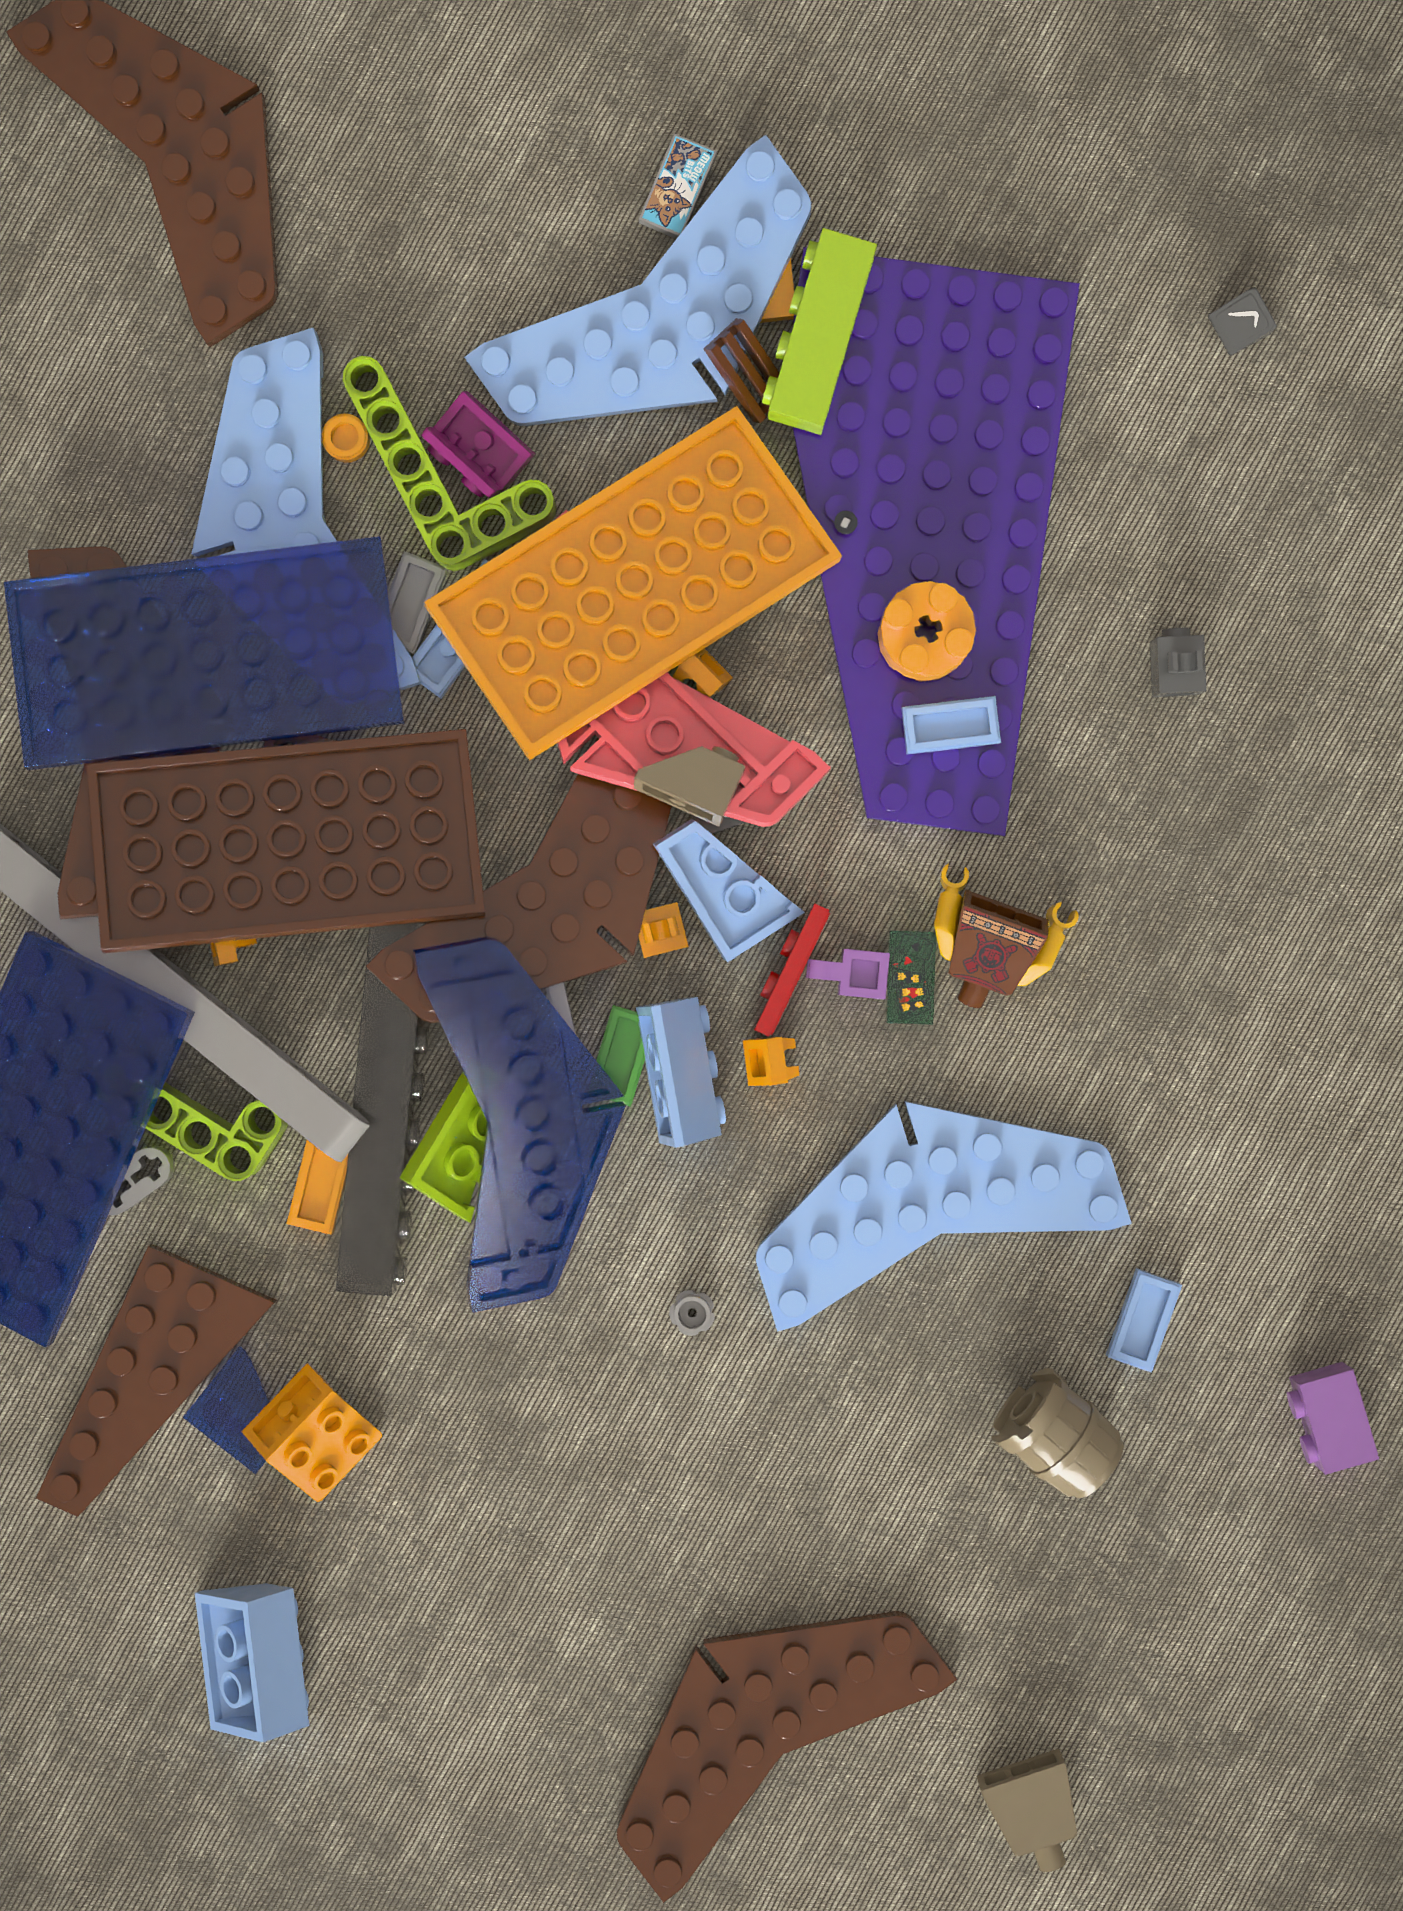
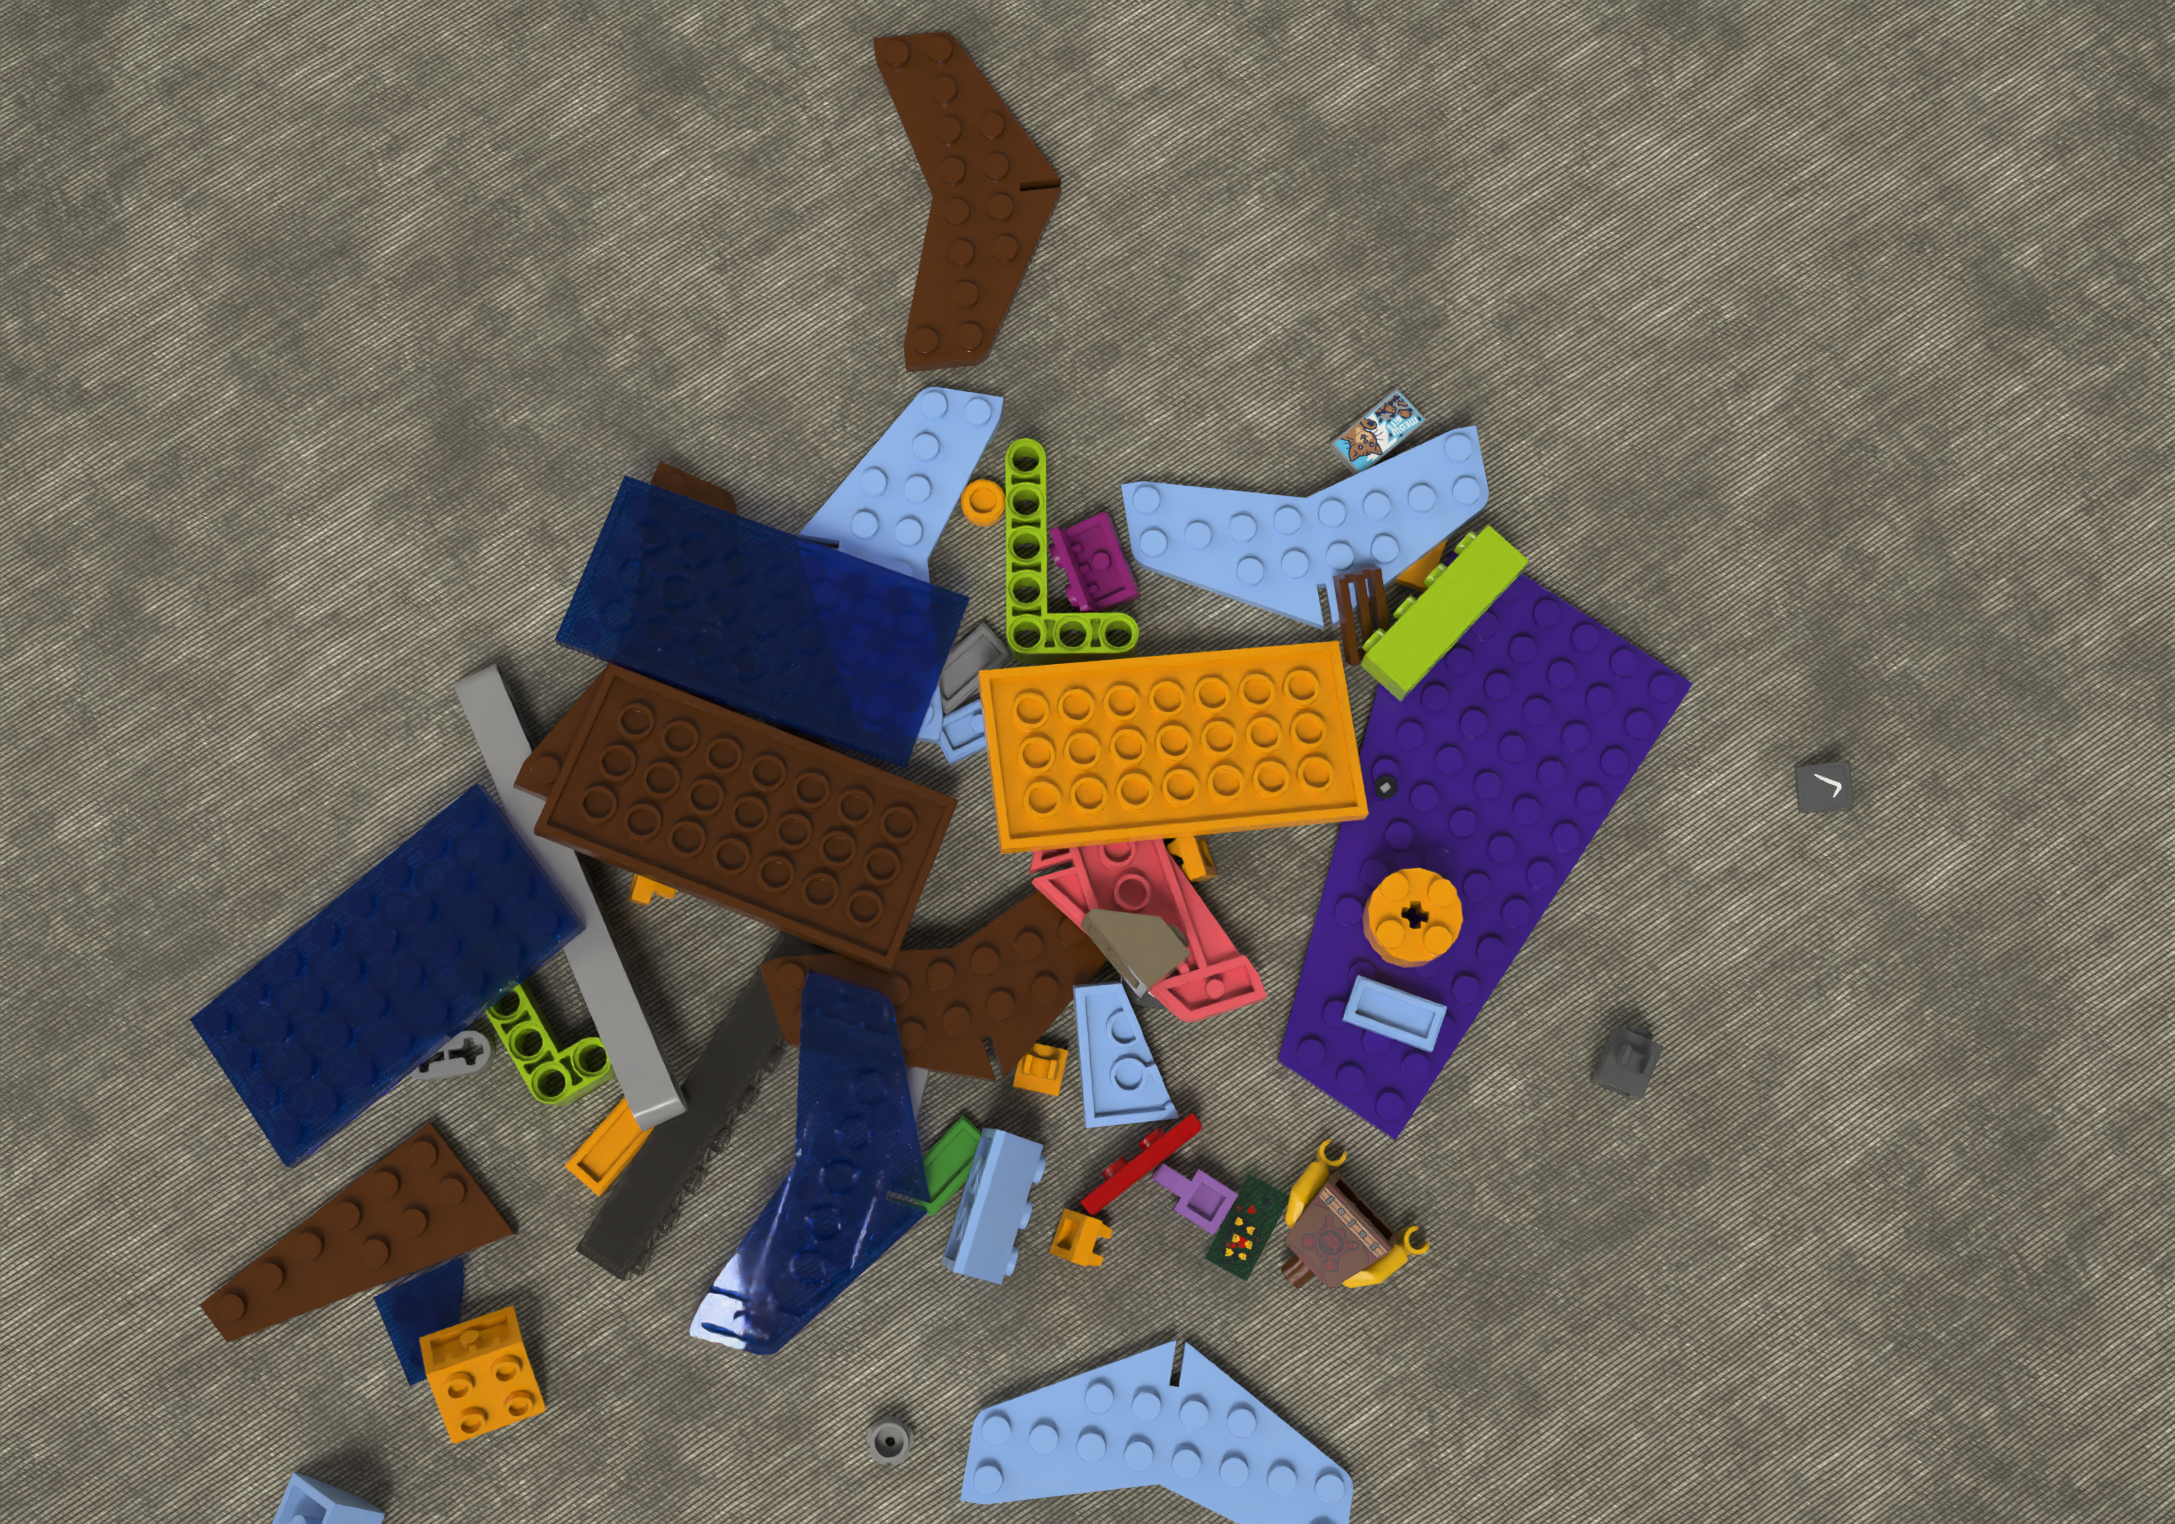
camera: 25 degrees right, 10 degrees down
(451, 1153) = (746, 1176): lime wing -> none

